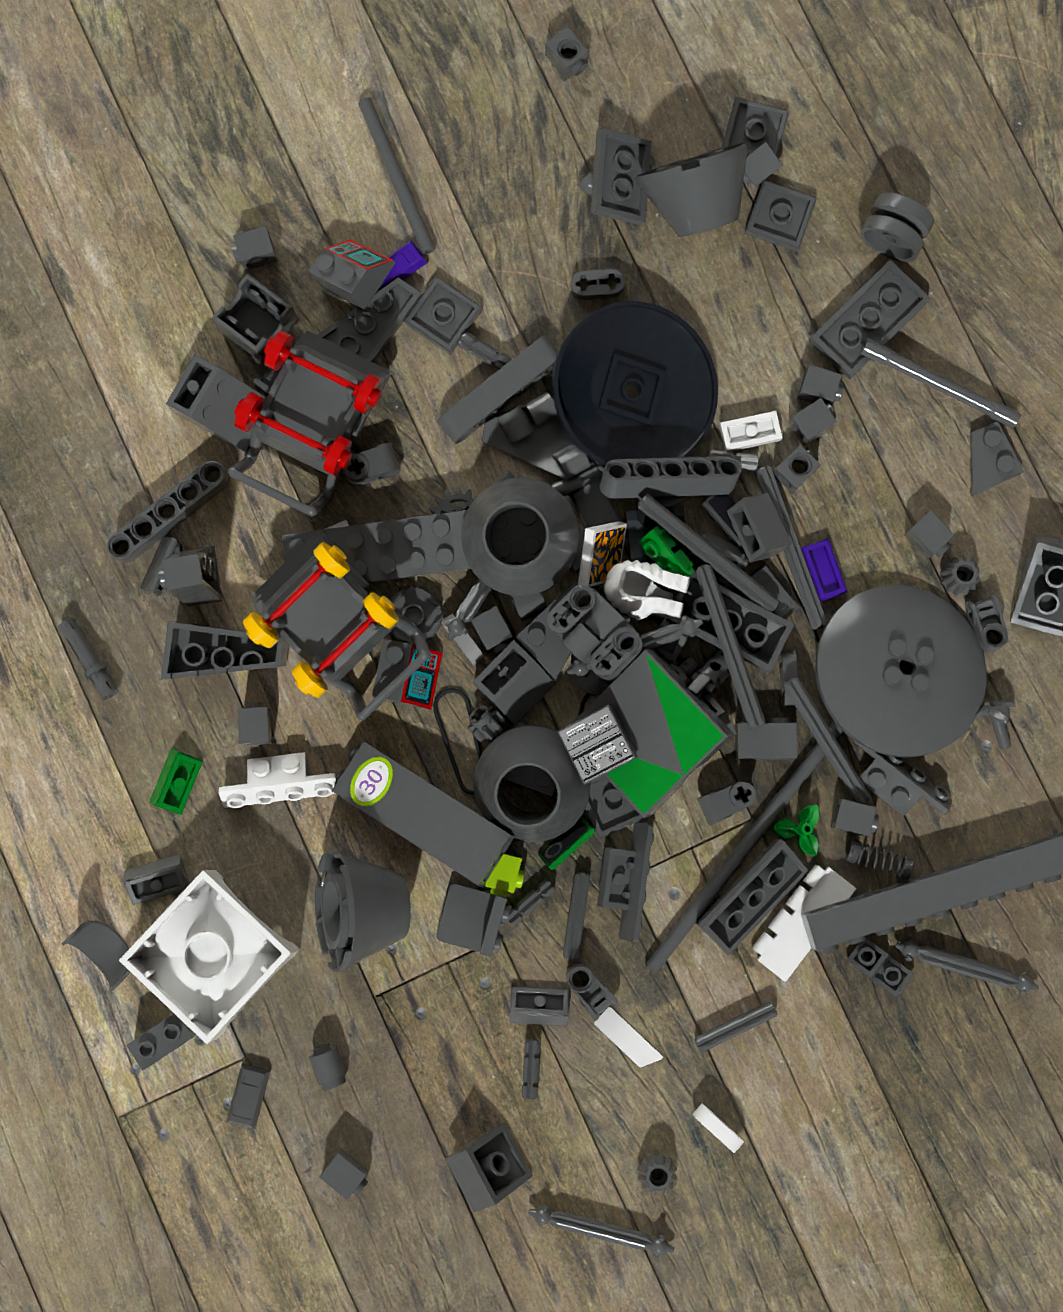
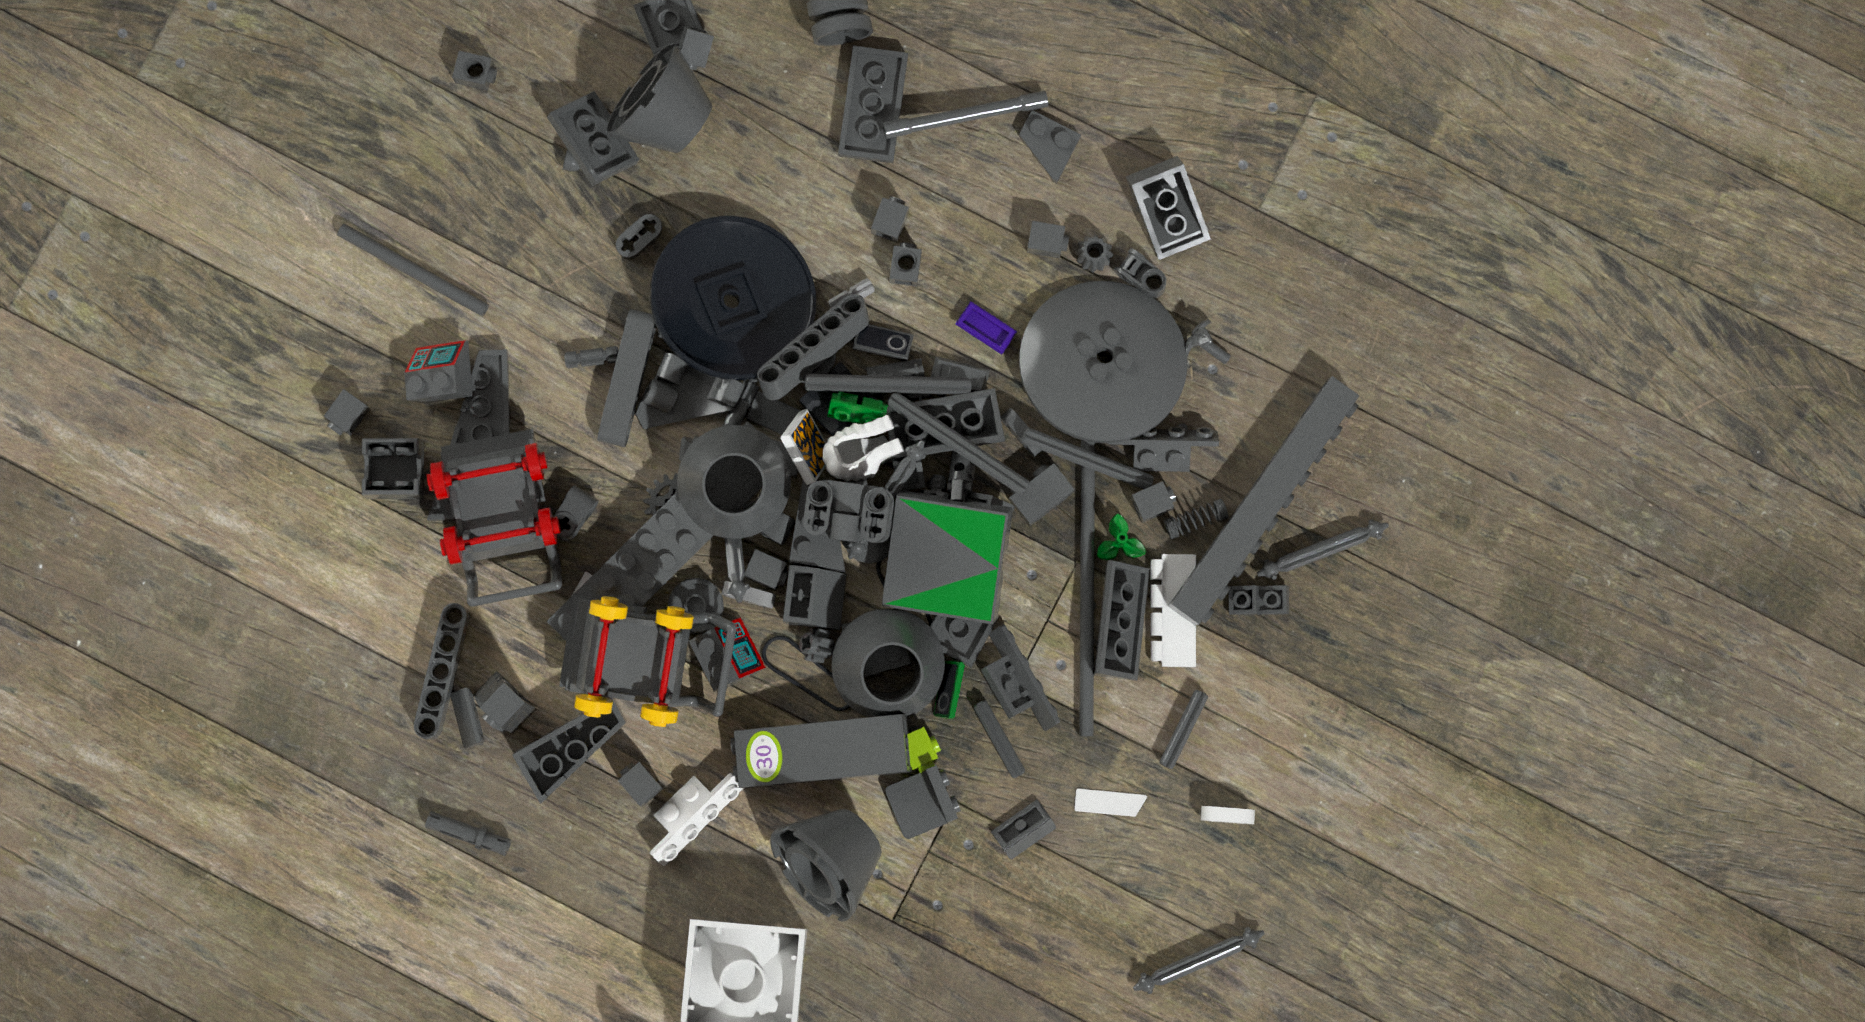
camera: 40 degrees left, 0 degrees up
(155, 879) = (654, 961): dark grey slope -> none
(176, 781) = (610, 875): green slope -> none
(209, 400) = (411, 557): dark grey slope -> none
(327, 1066) = (897, 998): dark grey brick -> none
(407, 261) = (474, 330): dark purple tile -> none
(443, 315) = (536, 353): dark grey tile -> none
(489, 1168) = (1078, 979): dark grey slope -> none
(530, 901) = (956, 755): dark grey axle -> none
(531, 1069) = (1053, 881): dark grey axle -> none
(591, 991) = (1054, 787): dark grey piece -> none
(597, 744) = (915, 595): light grey tile -> none
(657, 1184) = (1218, 885): dark grey piece -> none
(722, 803) = (1044, 567): dark grey piece -> none
(750, 431) = (847, 263): white plate -> none
(759, 527) = (911, 334): dark grey brick -> none
(780, 215) = (741, 73): dark grey tile -> none
(794, 552) = (947, 329): dark grey axle -> none
(820, 384) = (875, 186): dark grey brick -> none

